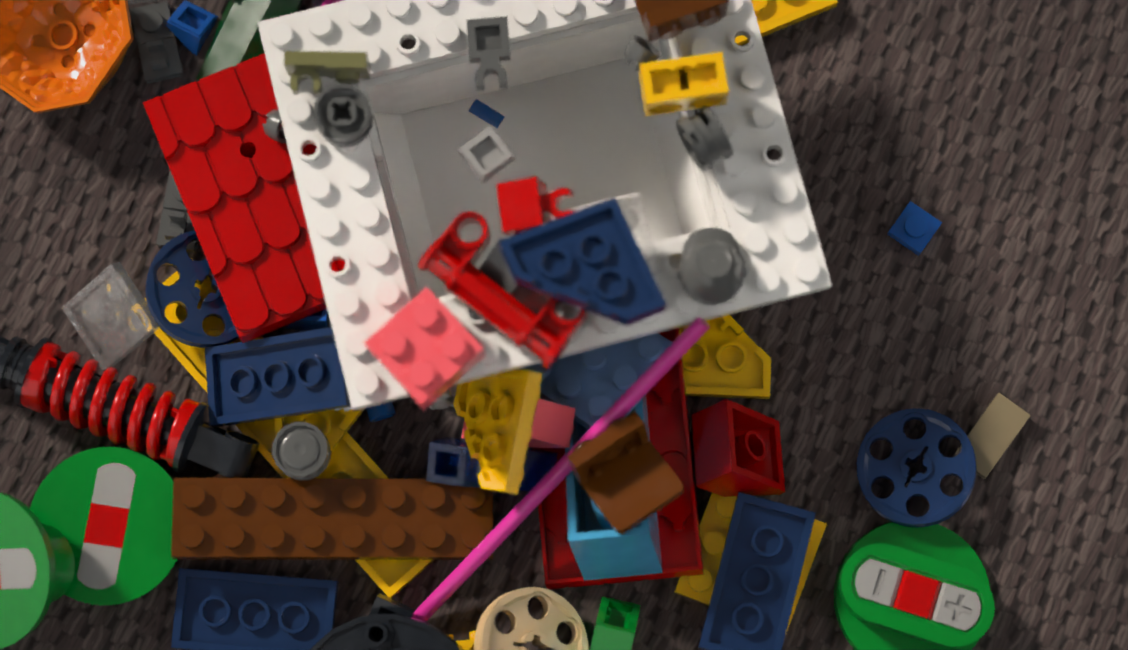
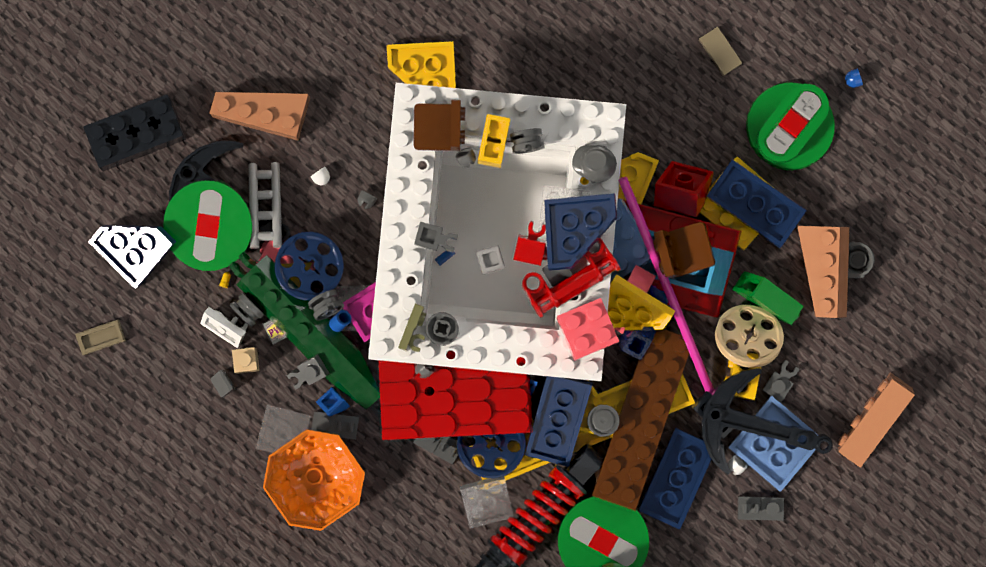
camera: 75 degrees left, 5 degrees up
(910, 450) = (735, 97): dark blue wedge -> none
(914, 228) = (593, 48): blue plate -> none

